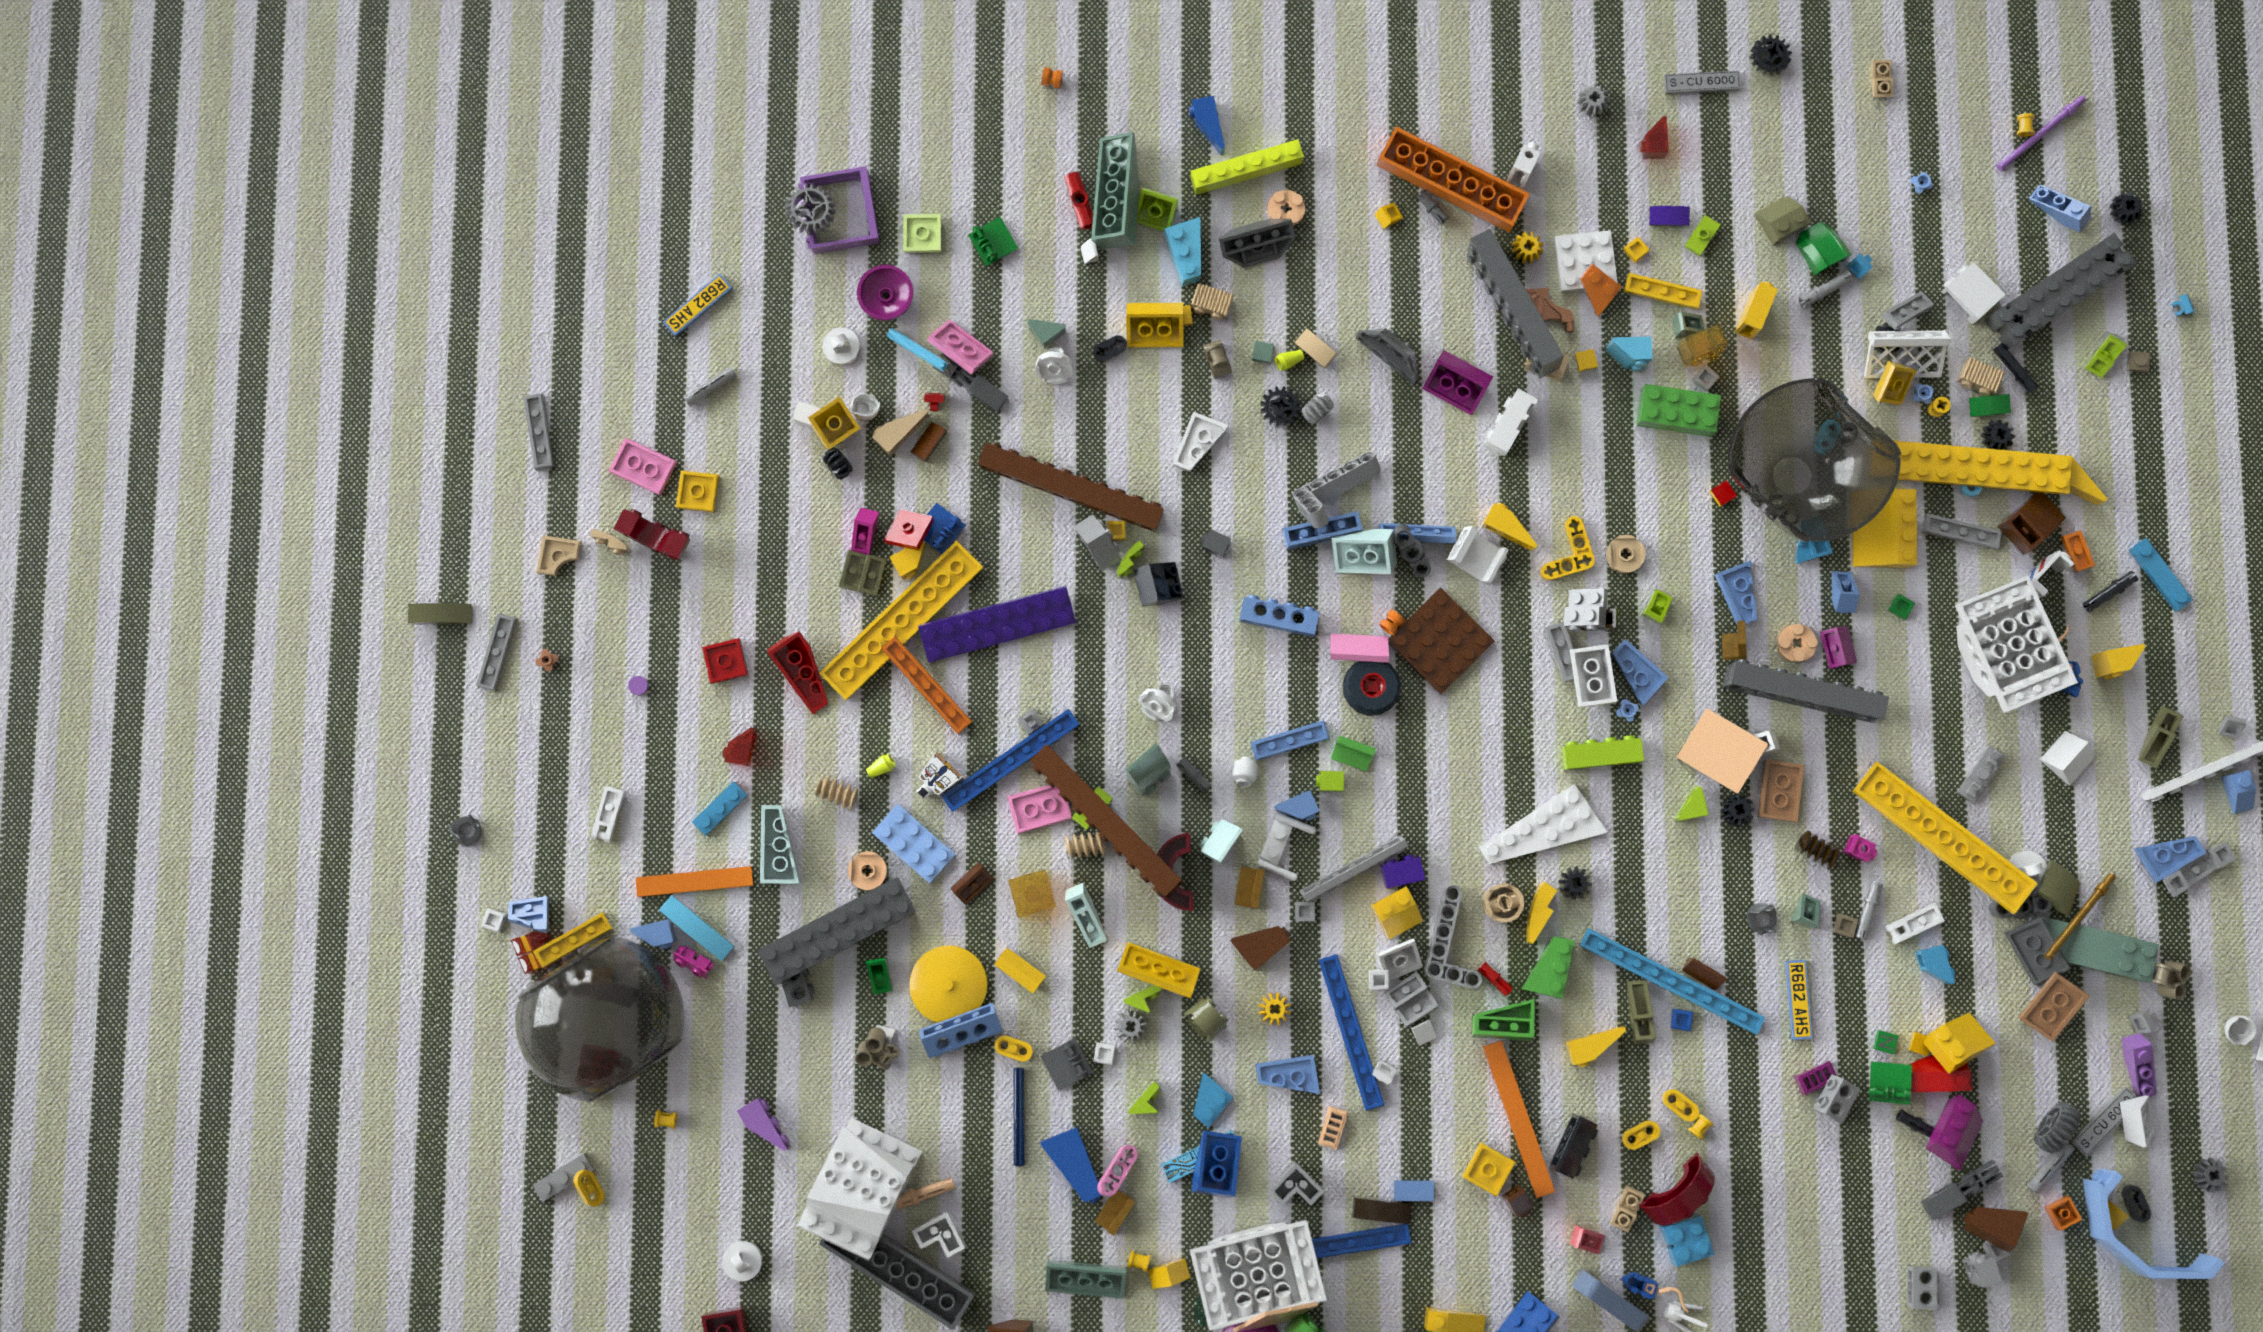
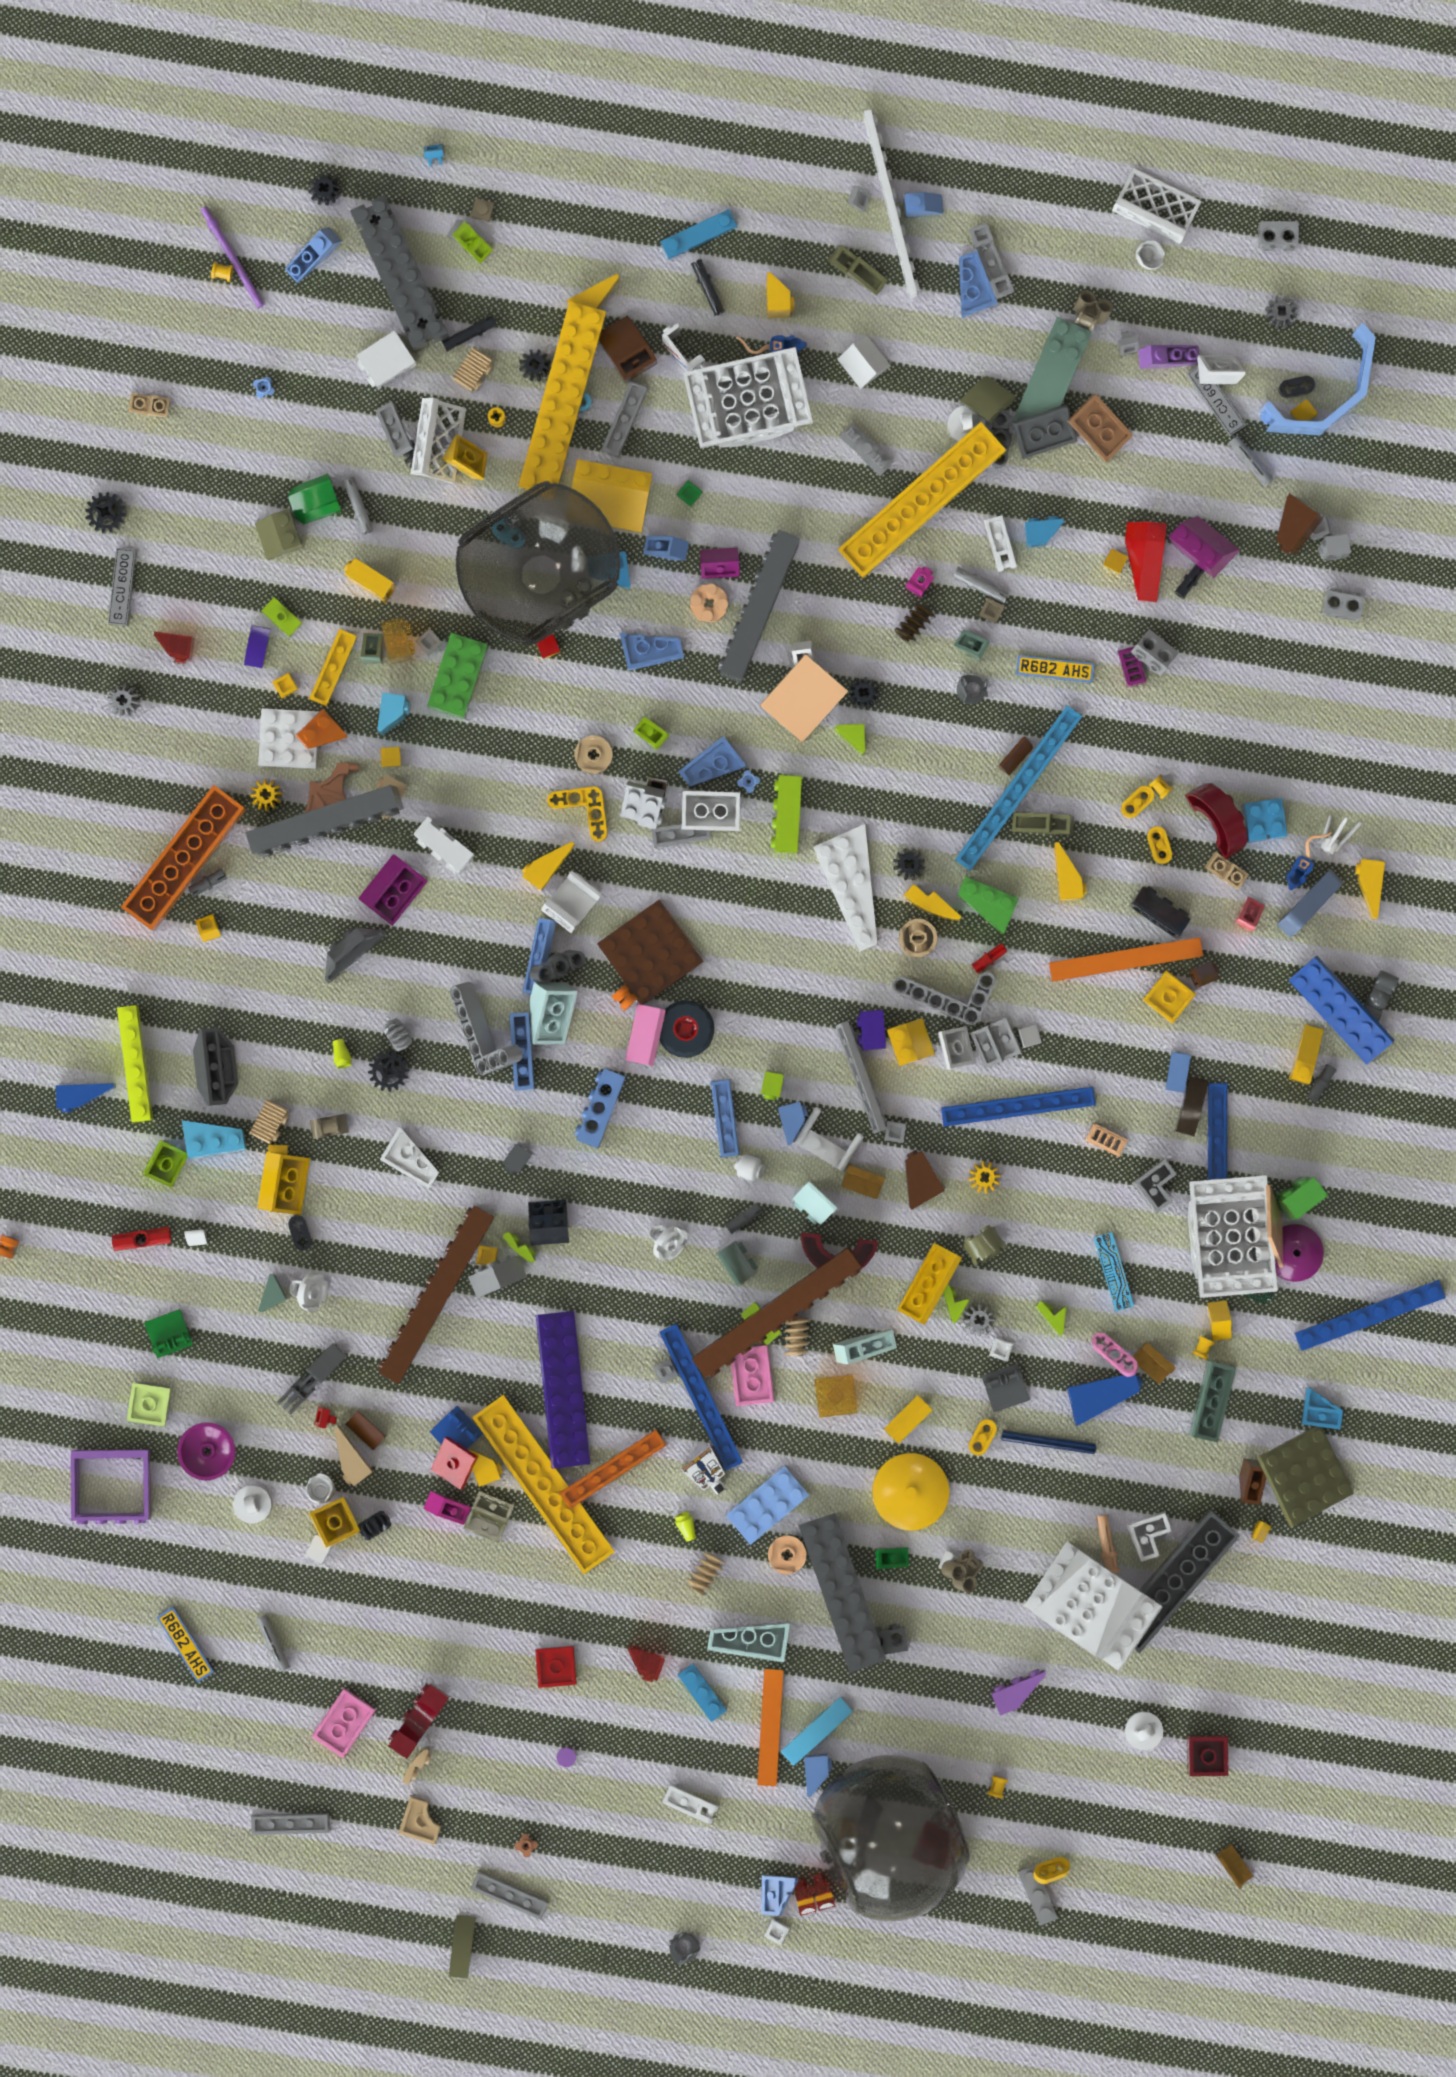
camera: 85 degrees left, 5 degrees up
(572, 940) = (809, 1854): yellow tile -> none
(685, 959) = (855, 1734): dark pink hinge -> none
(697, 491) = (378, 1671): yellow tile -> none
(797, 664) = (570, 1594): red wedge -> none
(802, 210) = (108, 1523): light grey gear -> none
(917, 349) = (270, 1427): medium azure axle -> none
(960, 346) = (274, 1383): bright pink tile -> none
(965, 1022) = (952, 1493): medium blue brick -> none
(972, 883) = (815, 1453): reddish brown slope -> none
(1116, 192) = (140, 1200): sand green slope -> none
(1210, 1101) = (1062, 1253): dark azure wing -> none
(1217, 1165) = (1124, 1257): blue slope -> none
(1262, 352) = (328, 1079): sand green tile -> none
(1288, 198) = (178, 1021): light nougat plate -> none
(1290, 1073) = (1048, 1172): medium blue wing -> none
(1315, 348) = (334, 1025): tan slope -> none
(1353, 753) = (748, 1058): bright green panel -> none
(1378, 979) = (972, 1071): white slope -> none
(1384, 1072) = (1061, 1081): white plate -> none
(1508, 1022) = (1033, 955): bright green wedge -> none
(1524, 163) = (180, 783): white torso -> none
(1681, 1020) = (1056, 785): blue tile -> none
(1735, 643) = (701, 665): pearl gold panel -> none
(1780, 790) = (851, 647): medium nougat plate -> none
(1860, 265) = (339, 466): dark azure tile -> none
(1885, 1042) = (1108, 593): green tile -> none
(1890, 1082) = (1147, 597): green hinge -> none
(1928, 390) = (479, 424): light blue plate -> none
(1952, 1196) = (1263, 559): dark grey arm -> none
(1958, 1042) = (1119, 526): yellow slope -> none
(1990, 405) = (503, 366): green slope -> none
(2057, 1127) = (1214, 449): dark grey gear -> none
(2063, 1213) = (1295, 458): orange piece -> none
(2078, 551) = (662, 310): orange plate -> none
(2100, 890) = (996, 358): pearl gold bar -> none

